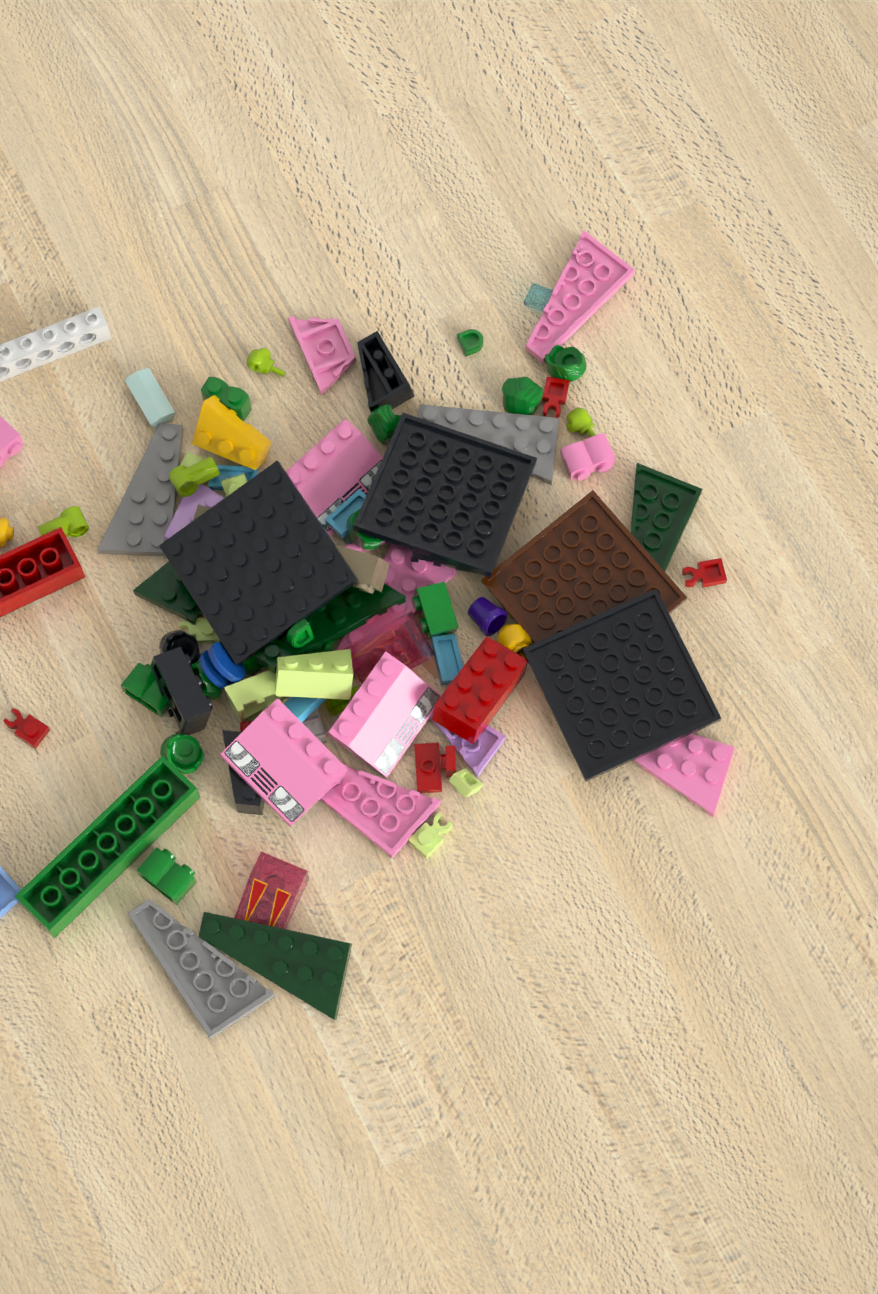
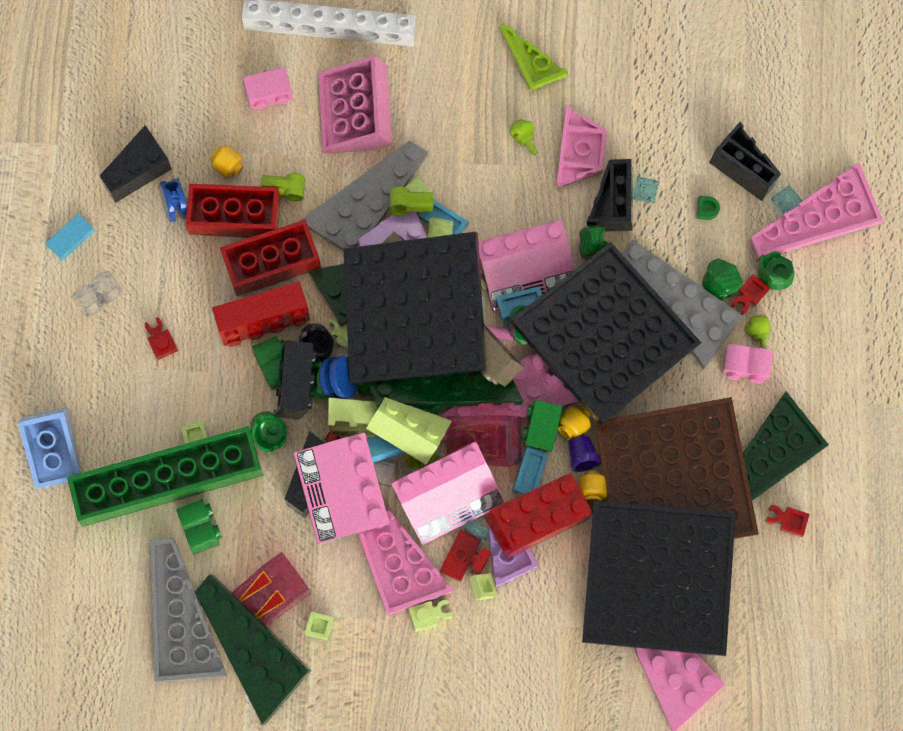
camera: 25 degrees right, 5 degrees up
(89, 419) = (355, 106): none -> bright pink slope
(90, 596) = (270, 257): none -> red brick
(110, 792) = (194, 432): none -> yellowish green plate
(113, 650) = (261, 314): none -> red brick
(150, 397) = (414, 114): light aqua piece -> none
(229, 436) = (458, 184): yellow wedge -> none
(231, 397) = (472, 147): green brick -> none
(236, 297) = (533, 64): none -> lime wing
(300, 634) = (414, 387): green tile -> none
(335, 902) = (319, 626): none -> yellowish green plate
(405, 354) = (646, 190): none -> clear light blue tile
(430, 735) = (477, 530): none -> clear light blue tile
(463, 592) = (574, 423): none -> yellow head
(482, 283) = (745, 163): none -> black wedge

